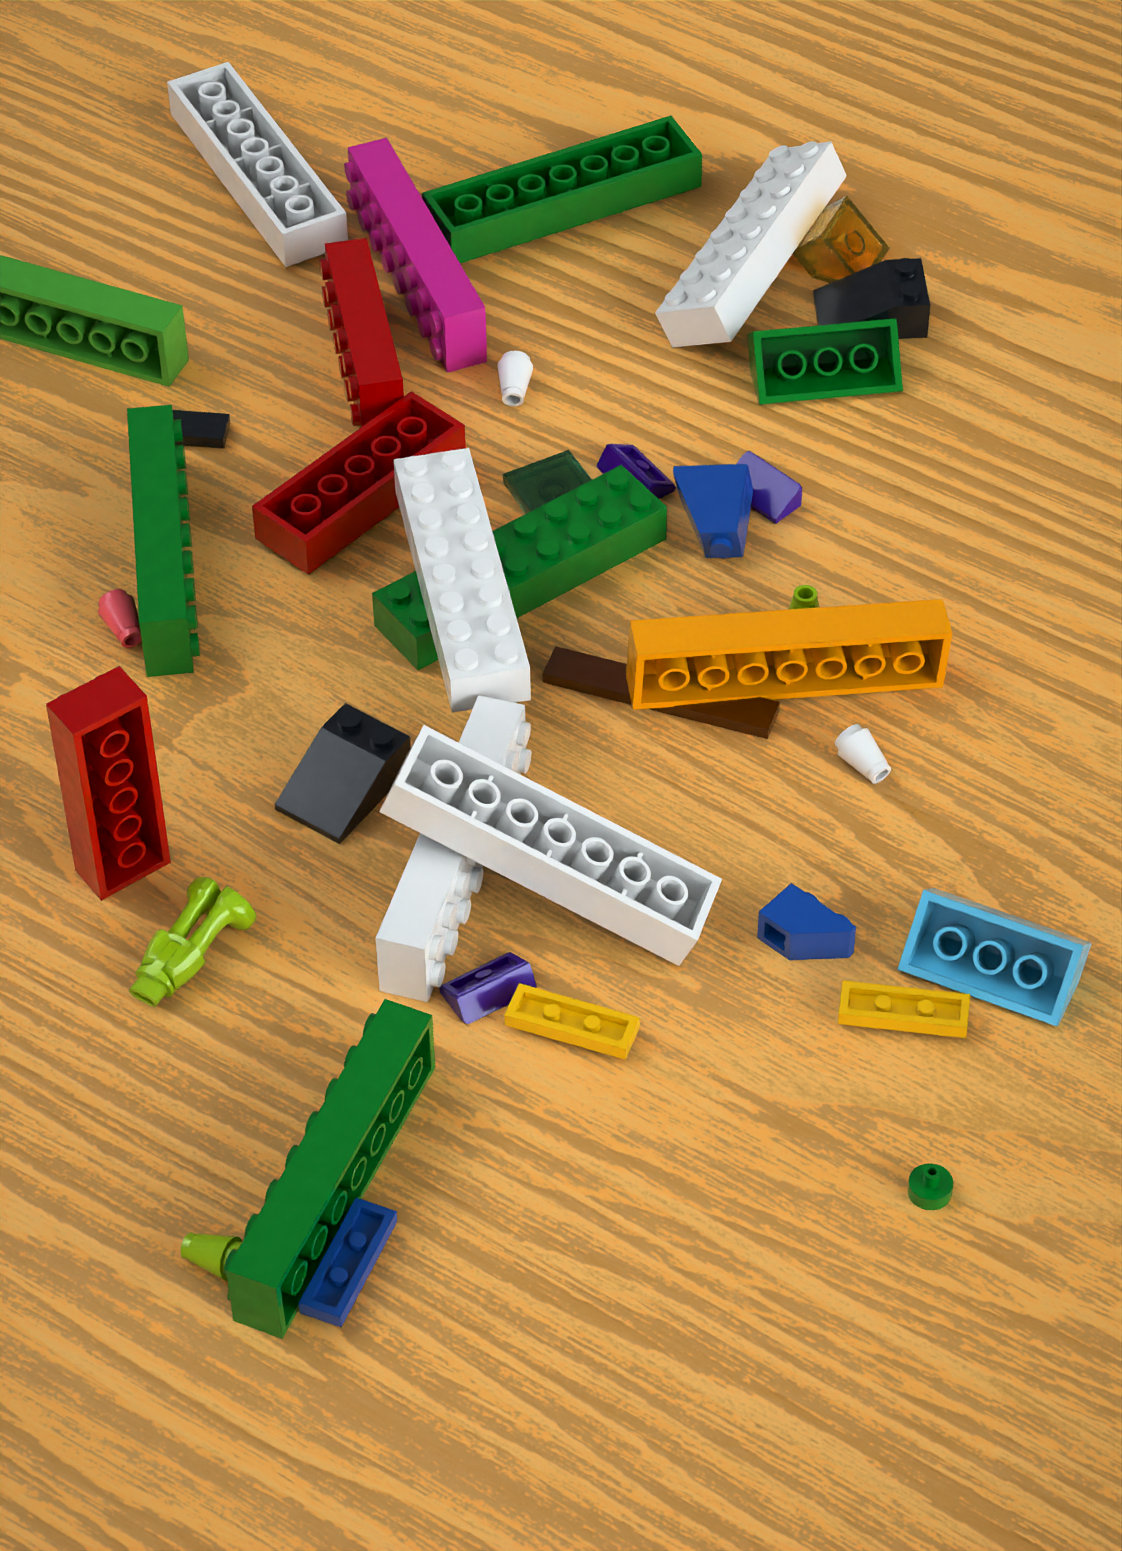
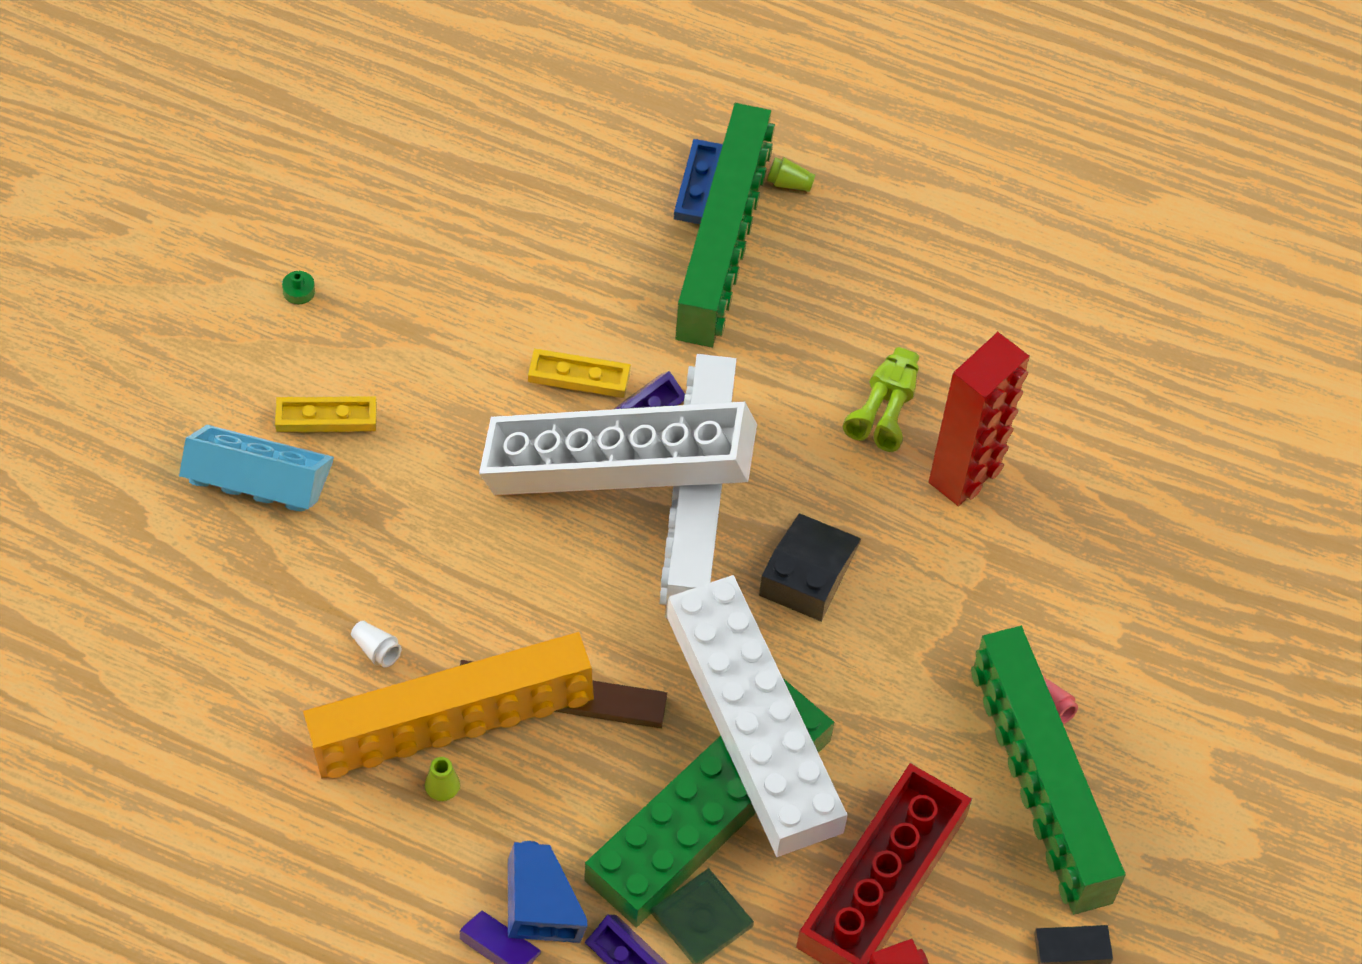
camera: 165 degrees right, 10 degrees up
(804, 928) = (410, 468): blue slope -> none

